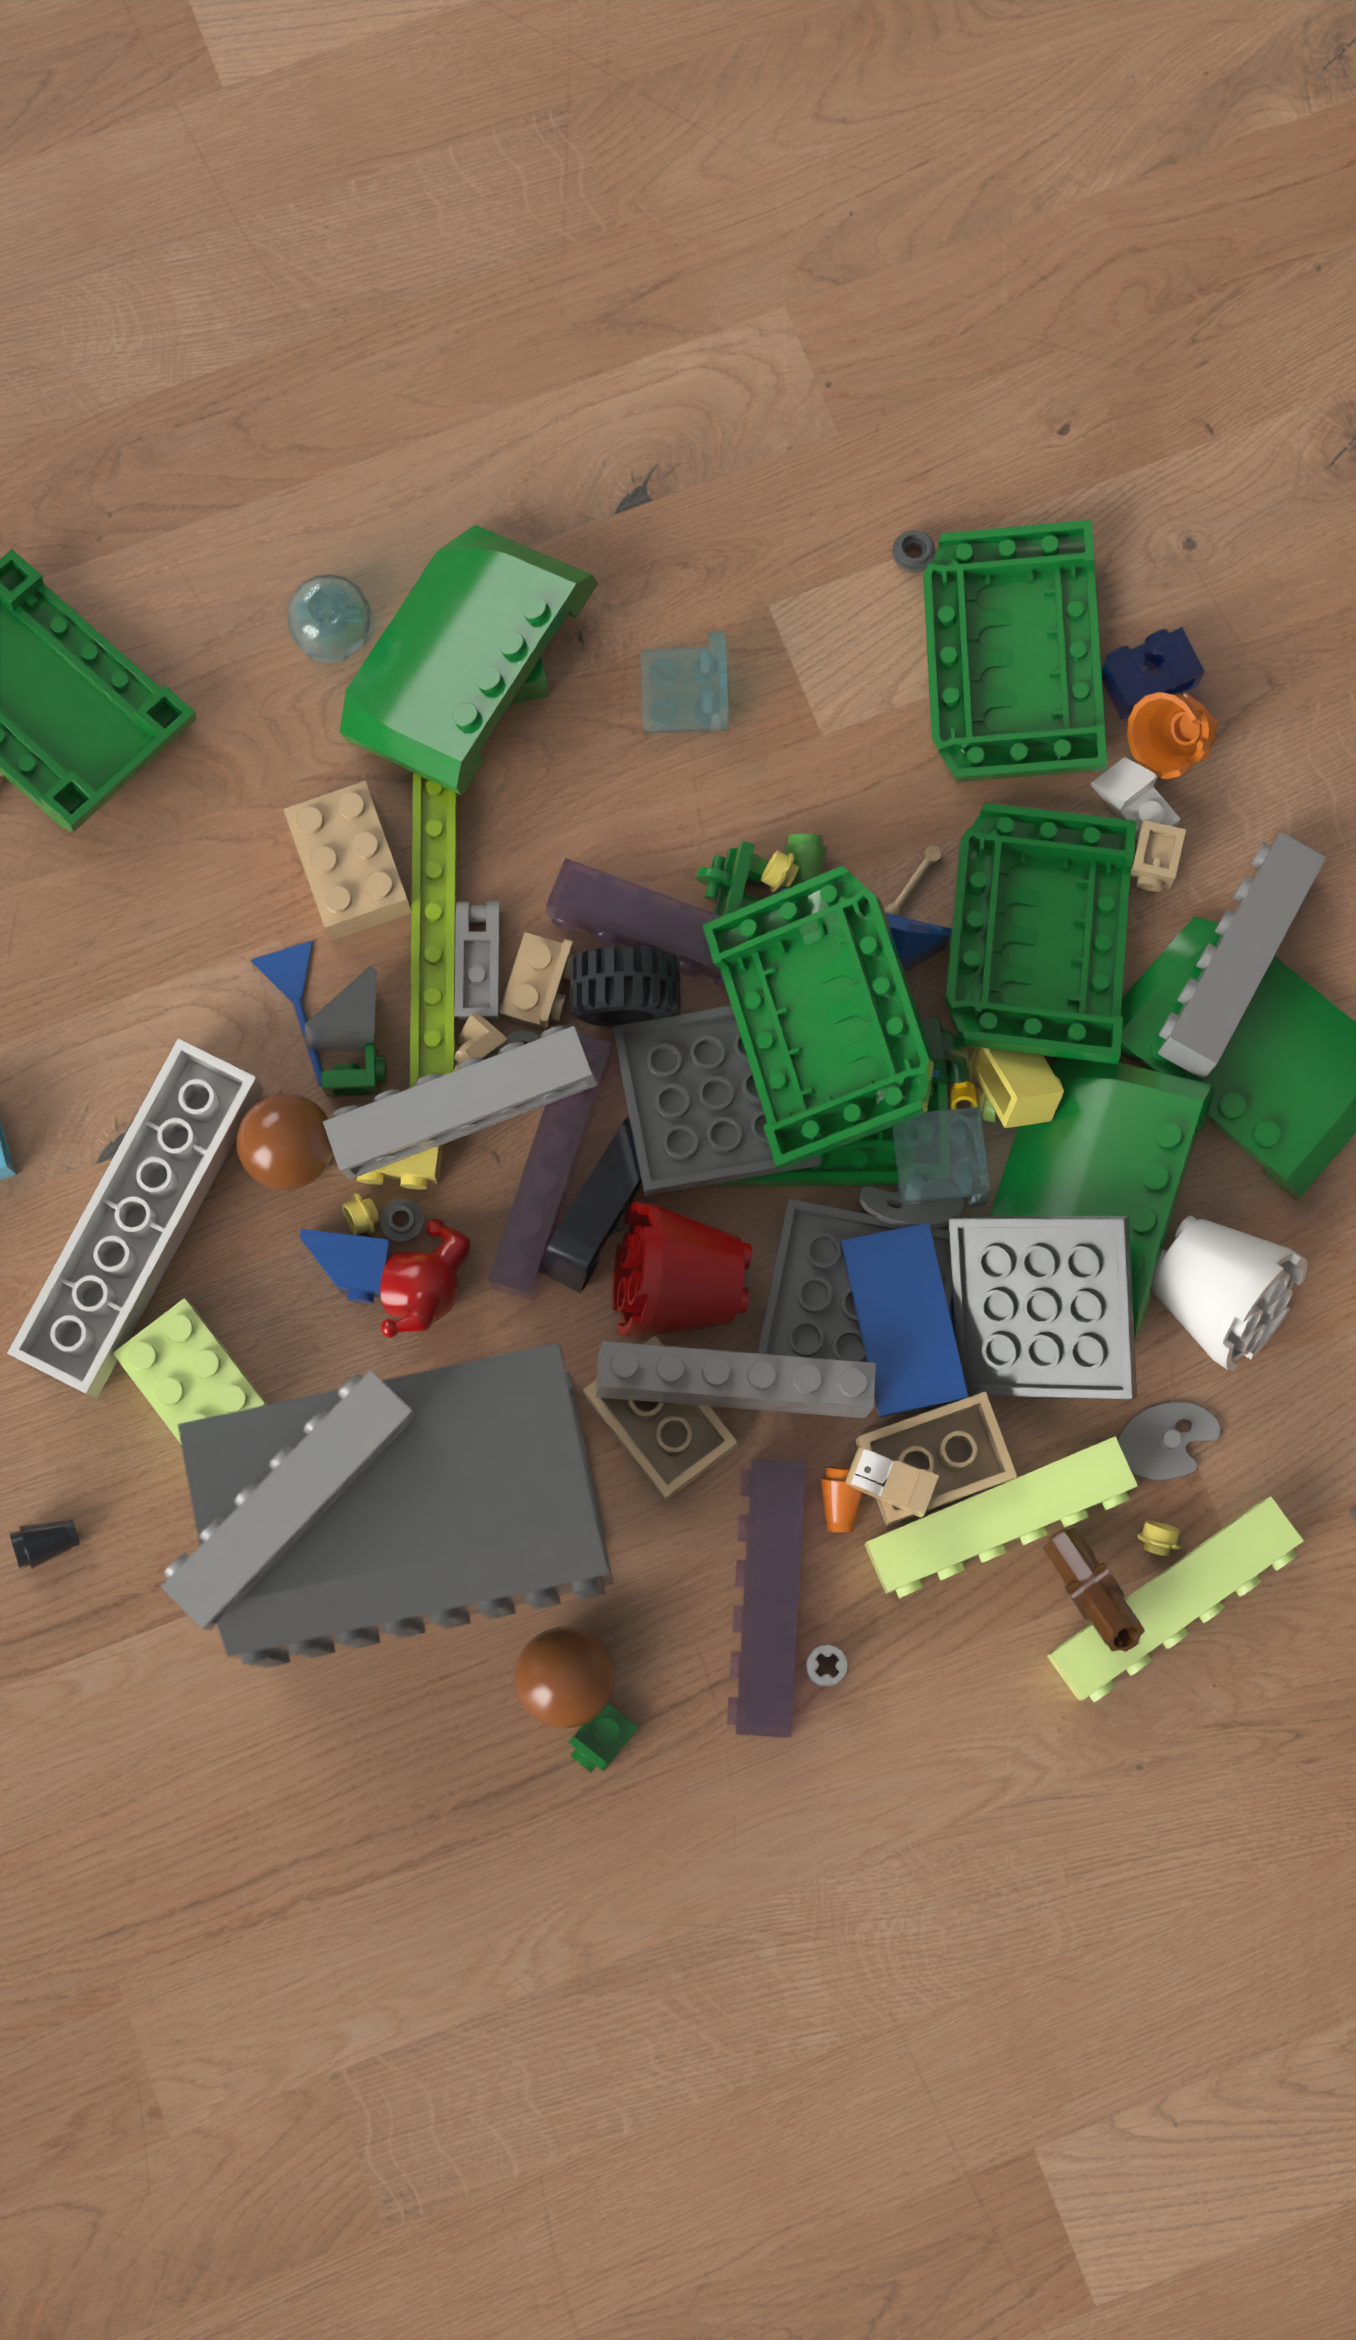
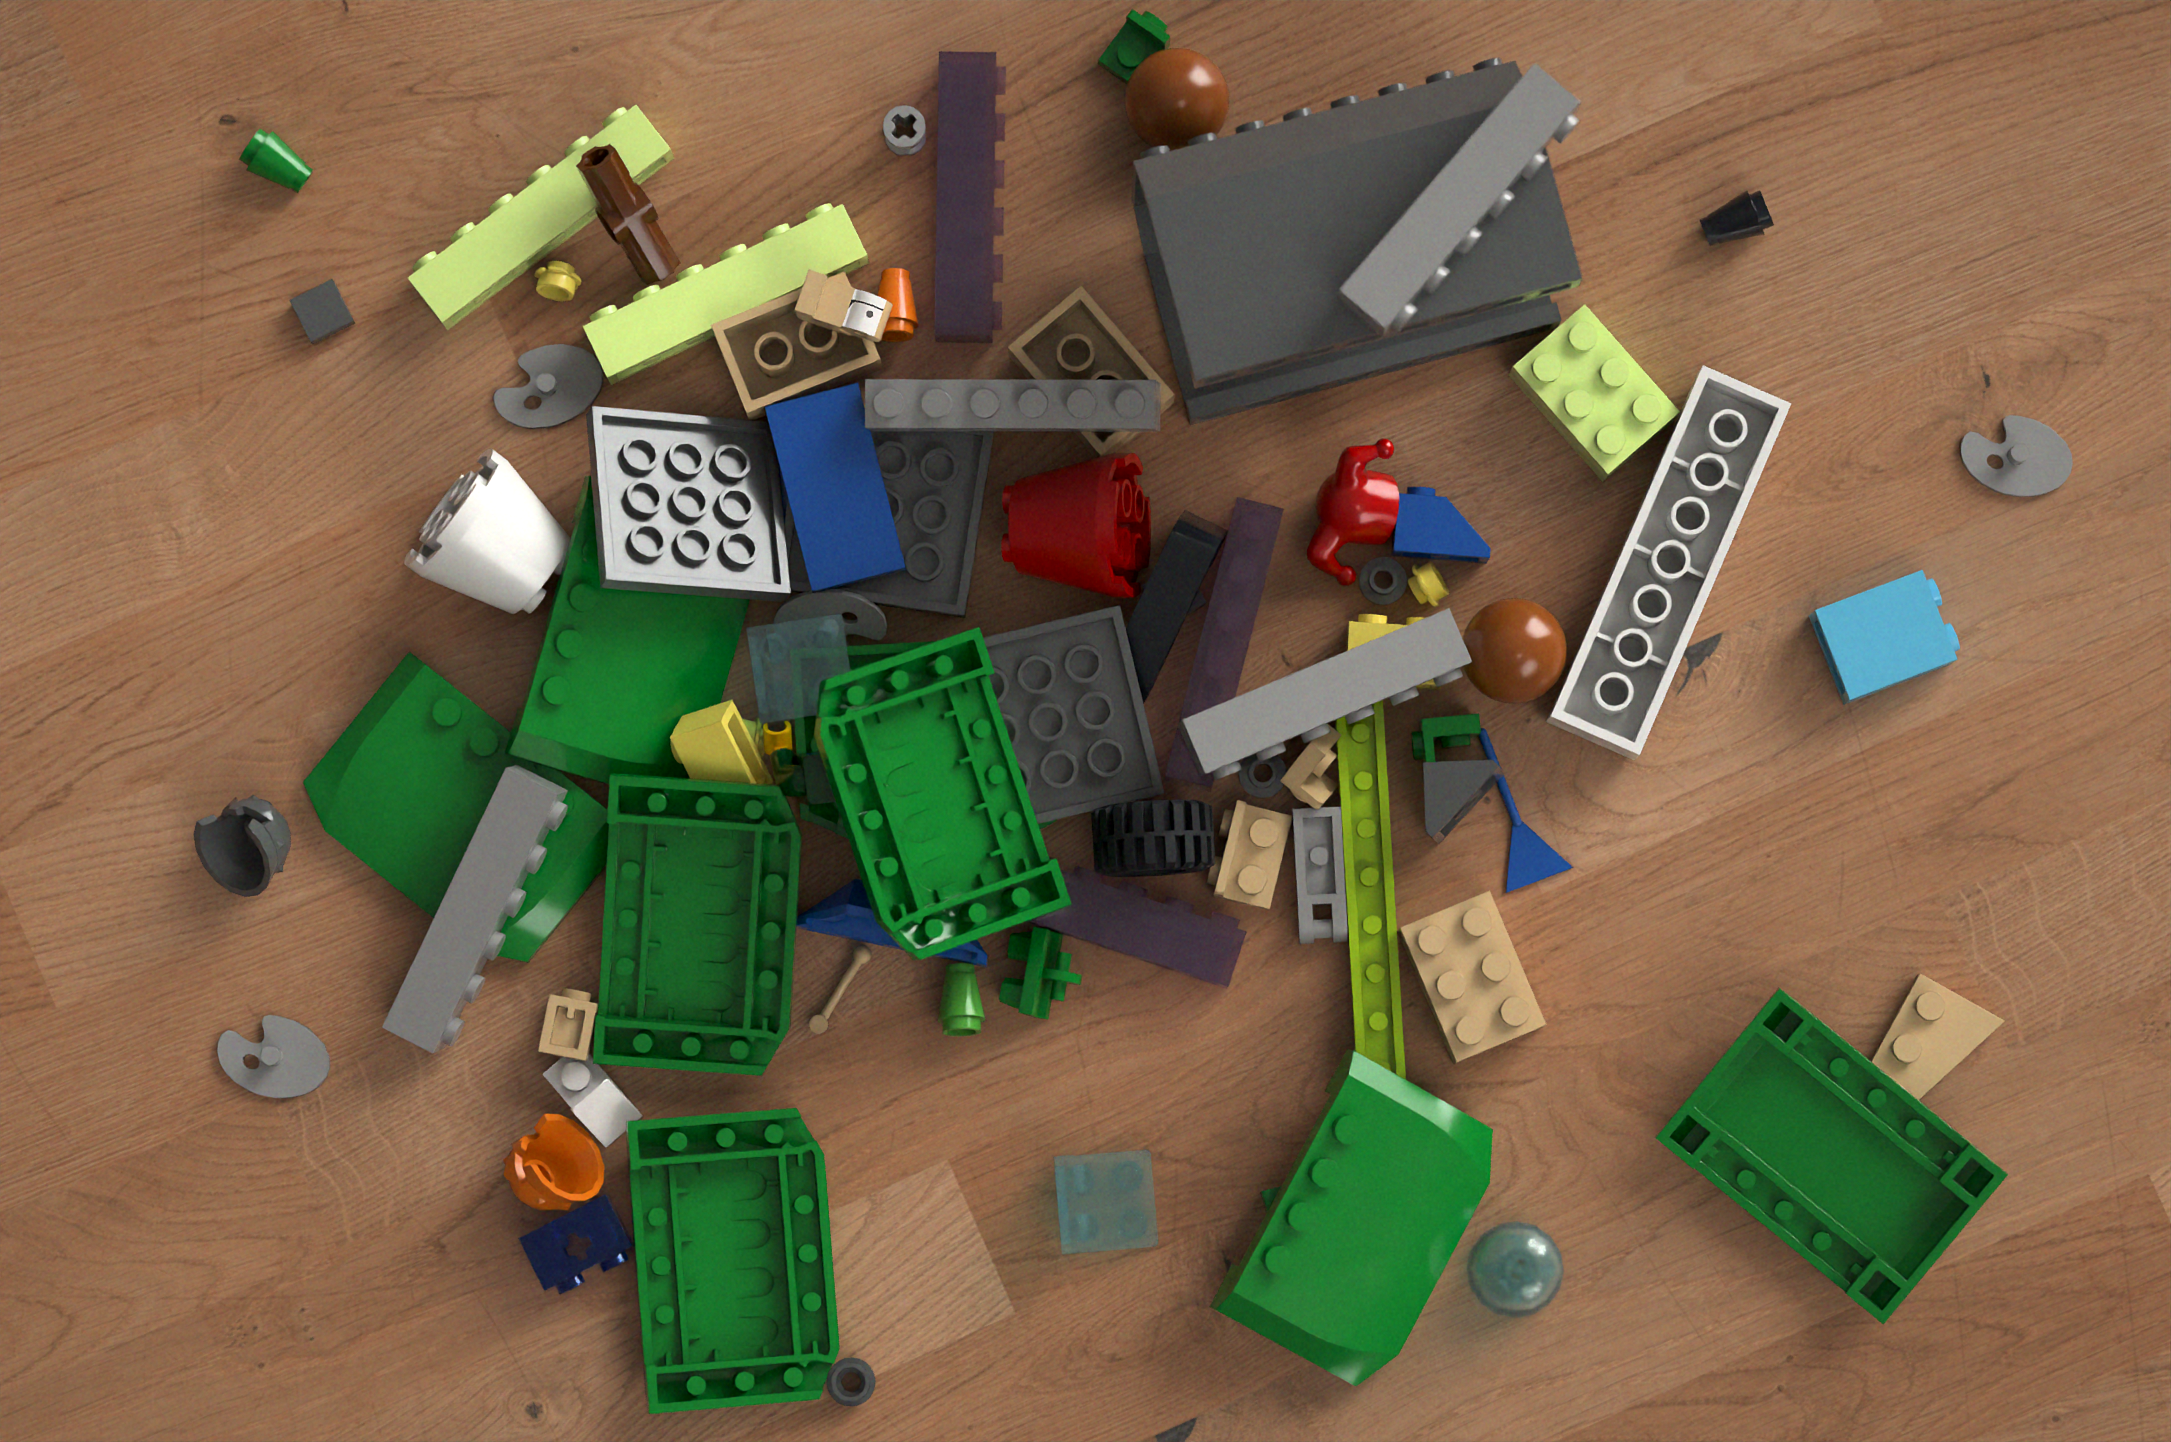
camera: 175 degrees right, 5 degrees up
(780, 871) = (988, 983): light yellow plate -> none

